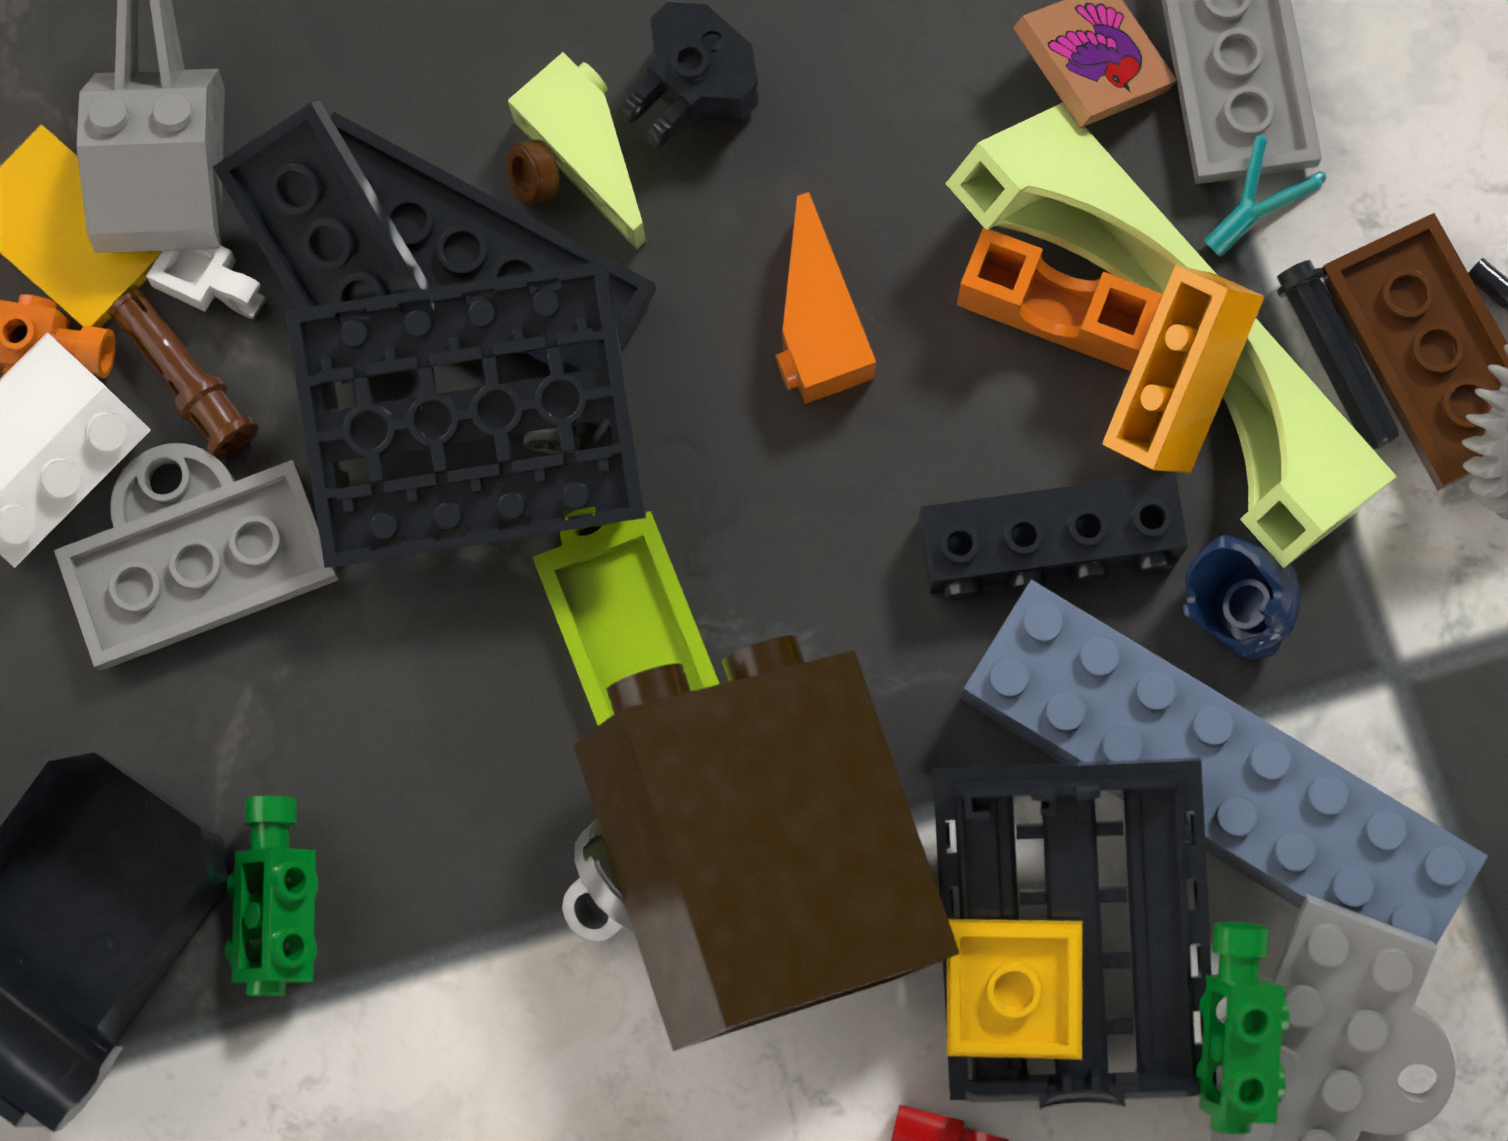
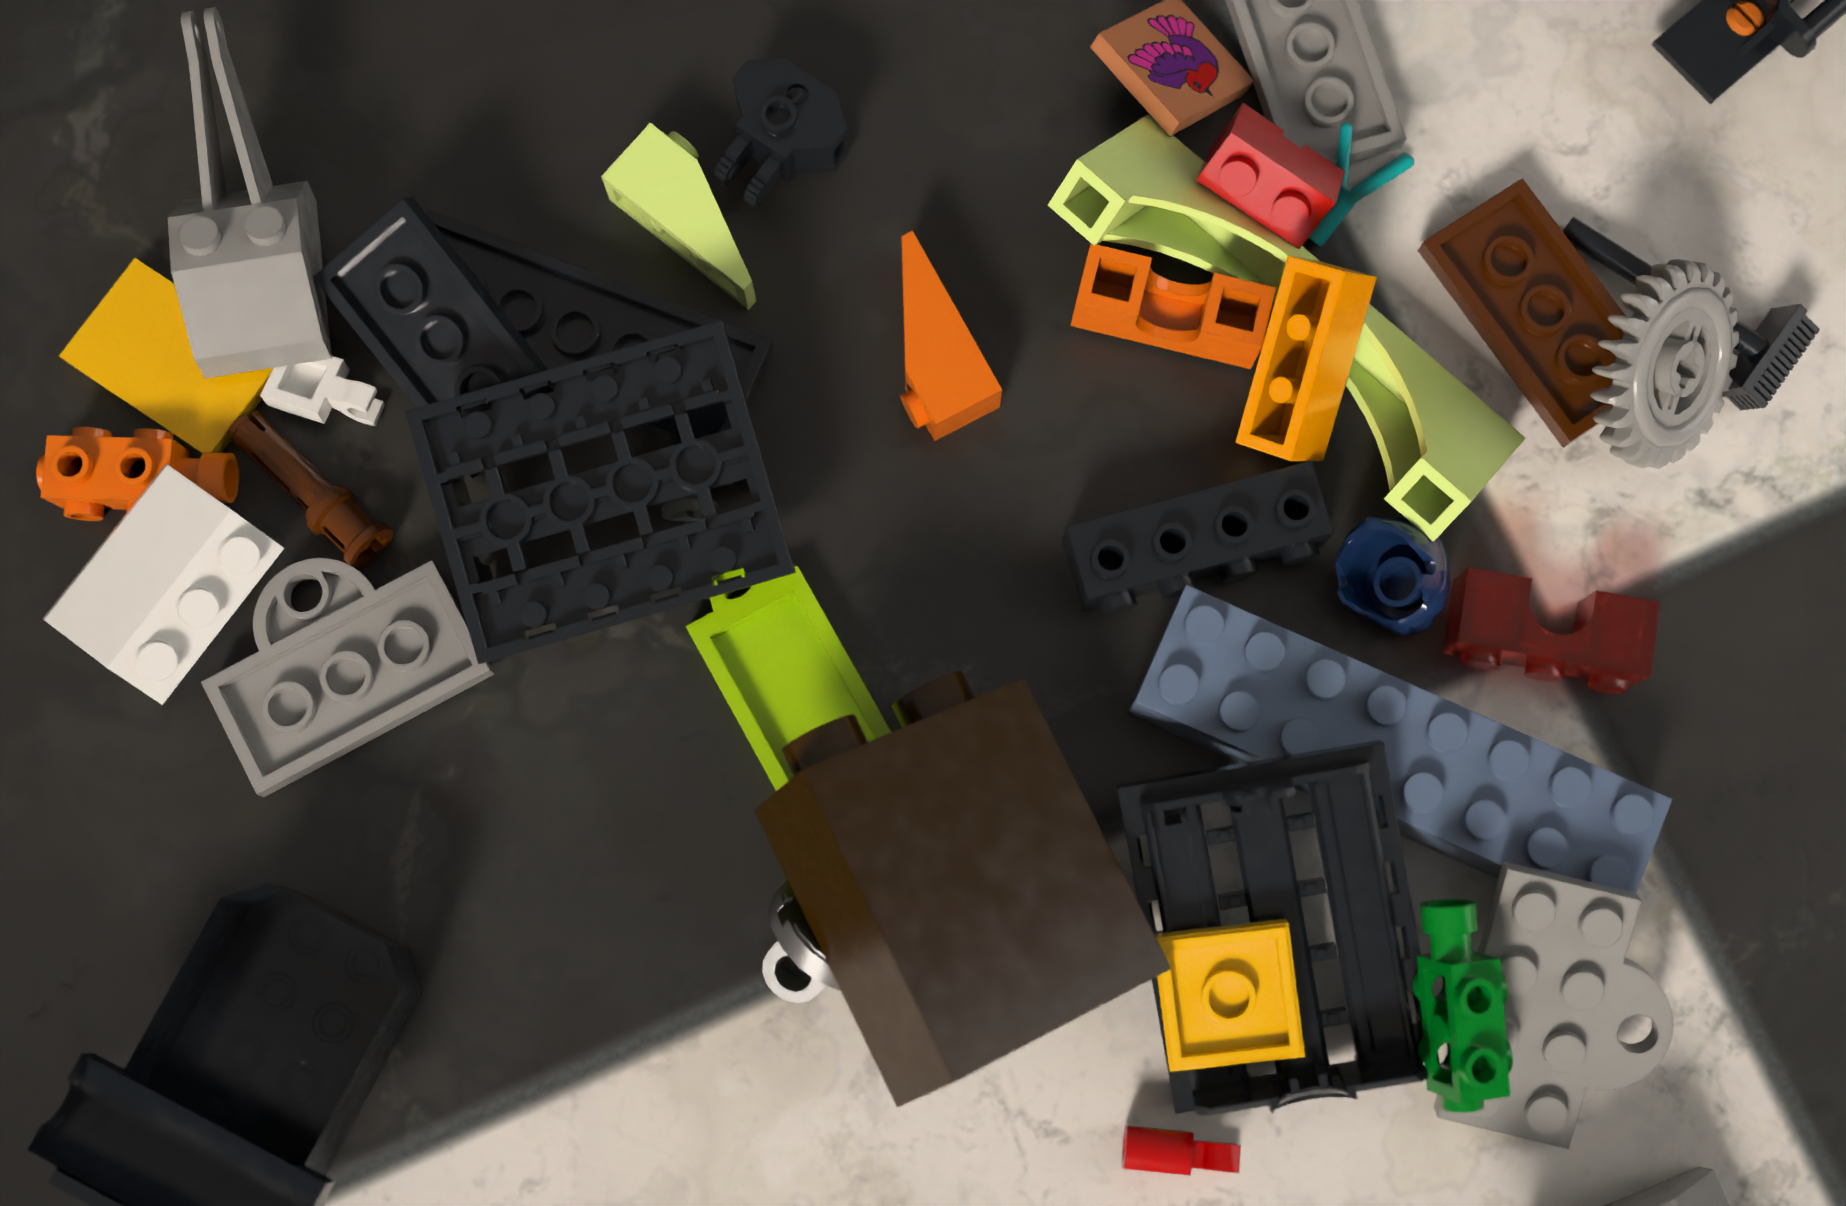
camera: 15 degrees left, 0 degrees up
(281, 908) = (478, 1013): green brick -> none
(532, 172) = (635, 245): reddish brown tile -> none
(1176, 181) = (1271, 176): none -> red brick
(1337, 353) = (1447, 325): black axle -> none
(1339, 661) = (1494, 625): none -> clear red arch

